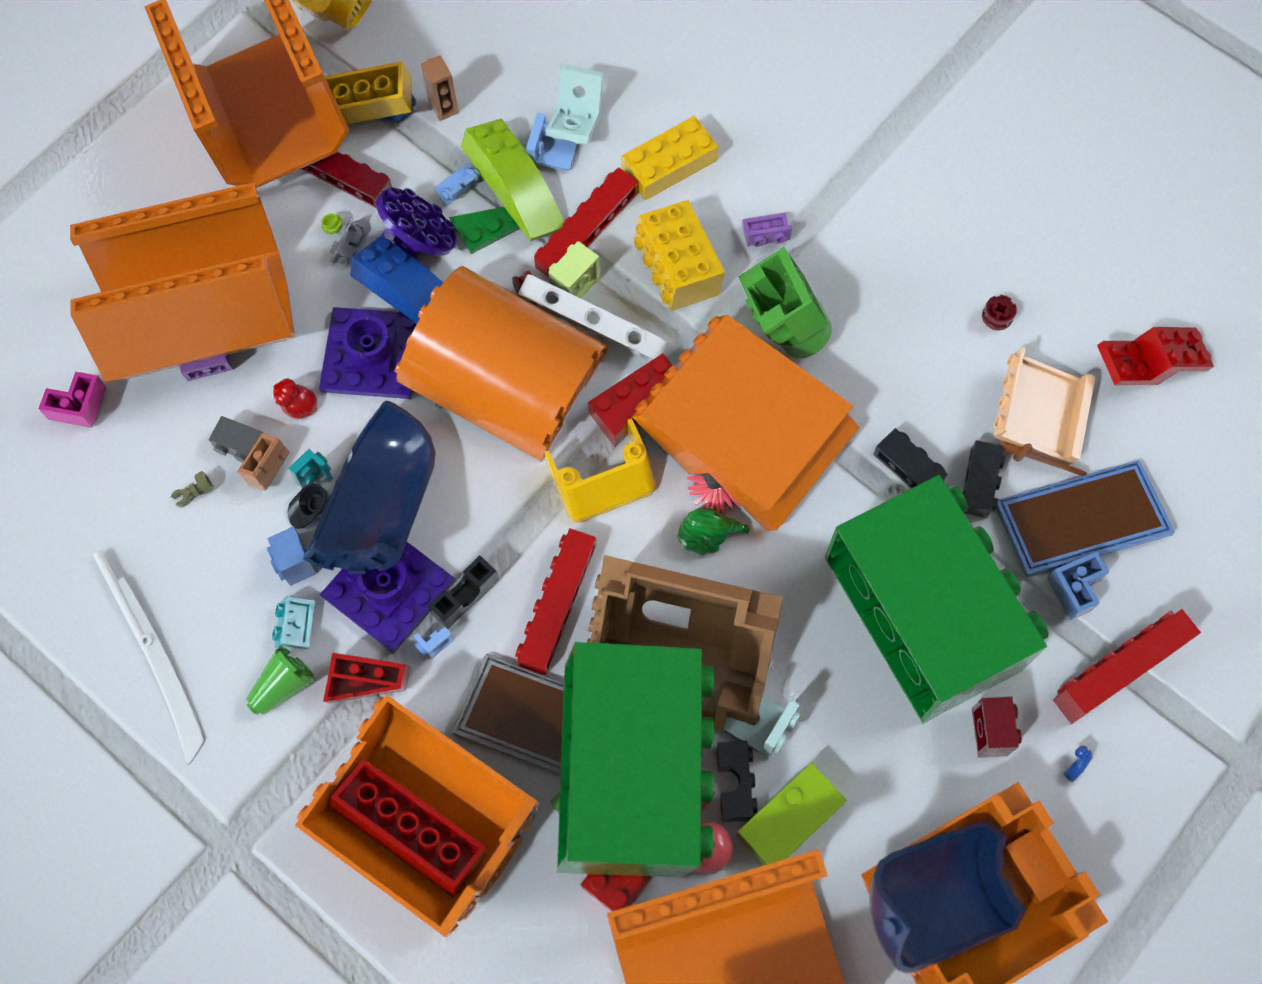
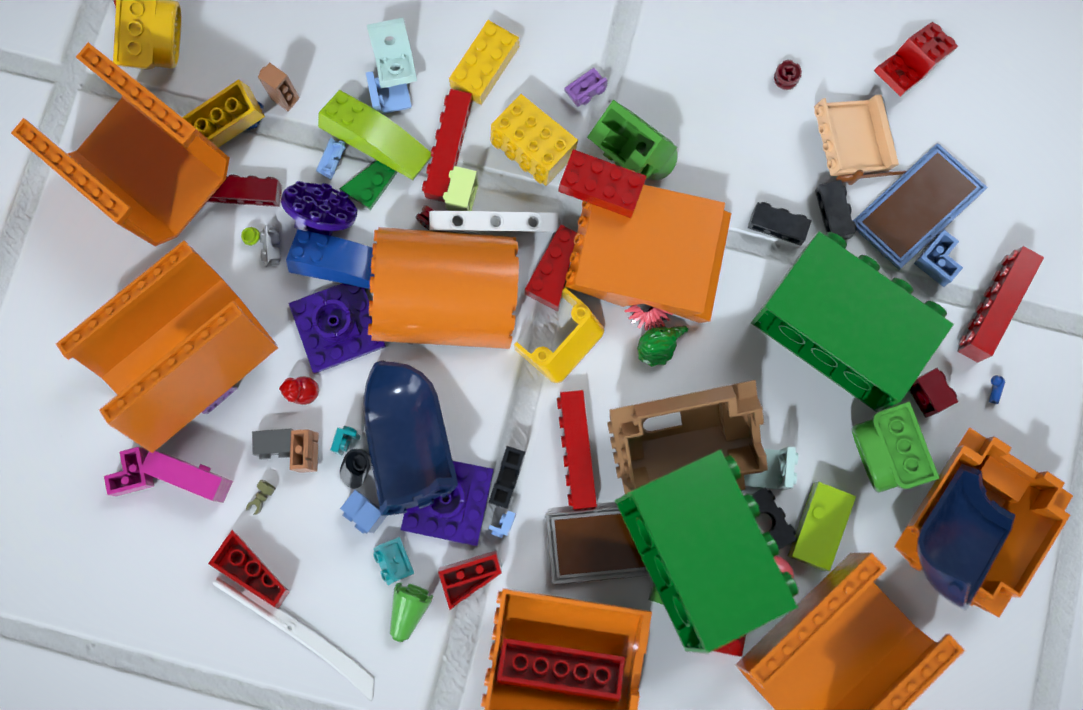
camera: 25 degrees left, 10 degrees up
(129, 429) = (187, 476): none -> dark pink brick
(135, 552) = (244, 567): none -> red wedge
(723, 322) = (602, 183): none -> red brick
(916, 766) = (894, 449): none -> bright green brick

